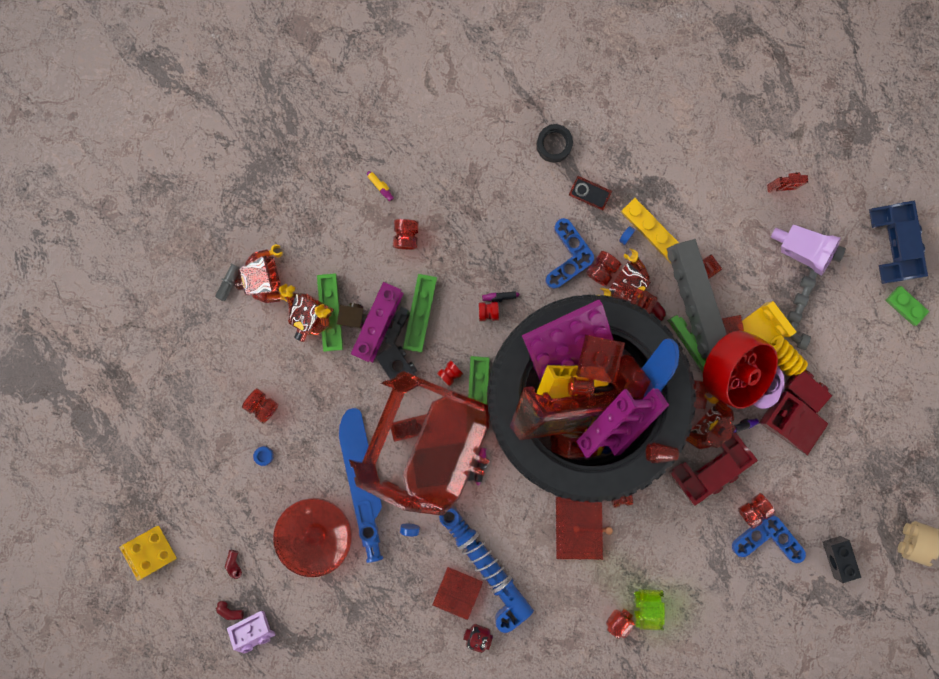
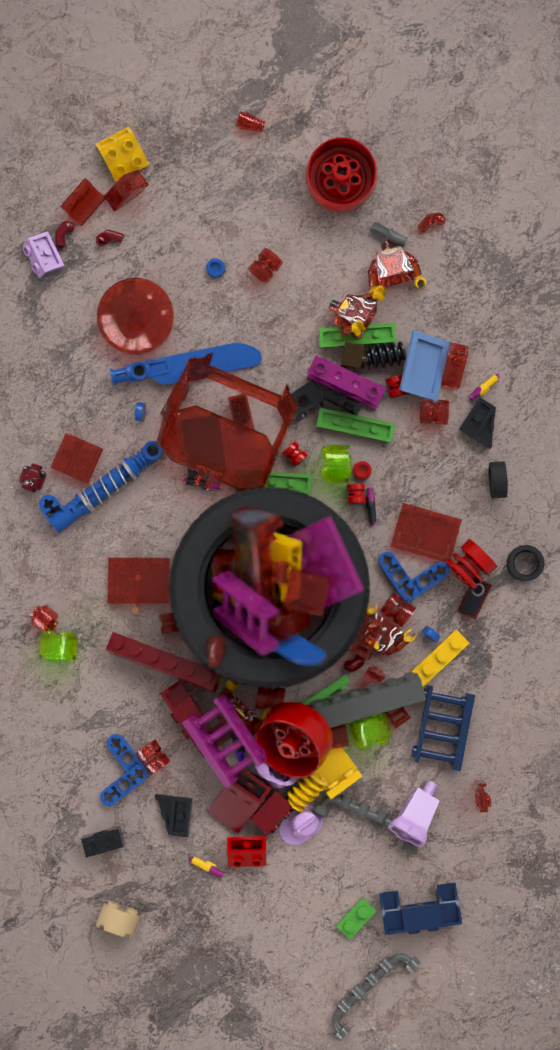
camera: 90 degrees right, 0 degrees up
(114, 424) = (247, 121): none -> clear red cone
(143, 326) = (326, 155): none -> red wheel
(183, 548) = (126, 189): none -> clear red slope
(196, 593) = (83, 202): none -> clear red panel
(211, 238) = (432, 218): none -> clear red arm
(348, 283) = (385, 355): none -> black piece
(358, 214) = (455, 365): none -> clear red bracket
(359, 245) = (424, 365): none -> medium blue piece
(376, 273) = (392, 383): none -> red wheel
(416, 189) = (480, 423): none -> black wing
(459, 331) = (337, 463): none -> clear neon green brick
(465, 306) = (362, 470): none -> red plate
(473, 170) = (498, 479): none -> black tyre
(526, 241) = (426, 533): none -> clear red piece
(558, 195) = (471, 564): none -> red wheel
(662, 506) = (163, 662): none -> dark red brick
(671, 293) = (372, 675): none -> clear red bracket
(728, 292) = (370, 731): none -> clear neon green brick
(731, 206) = (458, 740): none -> dark blue fence
(753, 454) = (207, 744): none -> magenta fence
(811, 486) = (175, 813): none -> black wing
(819, 361) = (301, 826): none -> lavender piece
(848, 415) = (246, 851): none -> red brick
(861, 453) = (207, 866): none -> piece

